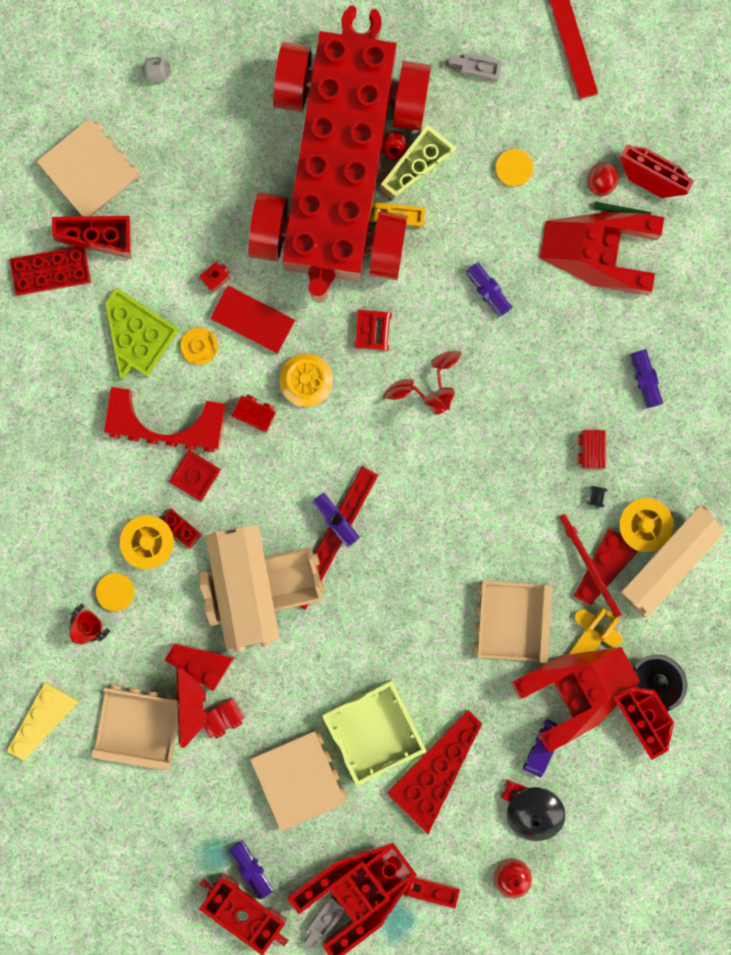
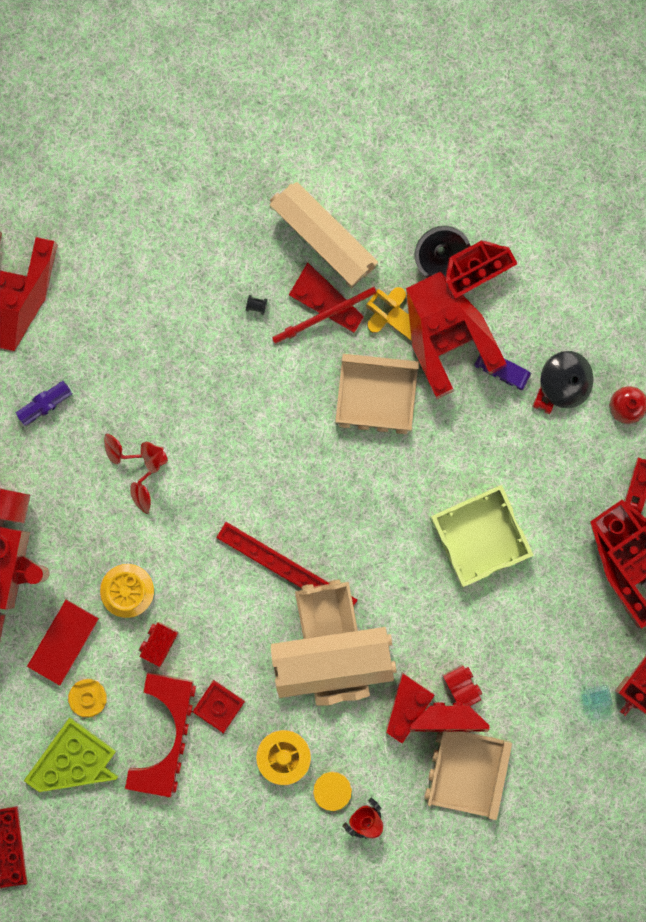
camera: 85 degrees left, 0 degrees up
(41, 719) = (452, 866): light yellow wing -> none
(181, 528) = (271, 721): red slope -> none
(215, 276) = (17, 678): red brick -> none
(251, 870) = (613, 663): dark purple piece -> none
(299, 780) = (526, 612): tan panel -> none
(343, 529) = (278, 558): dark purple piece -> none
(367, 327) = (79, 527): red plate -> none
(430, 779) = (527, 480): red wing -> none
(592, 449) = (209, 307): red brick -> none
(646, 378) = (141, 250): dark purple piece -> none
(646, 524) = (286, 257): yellow wheel -> none

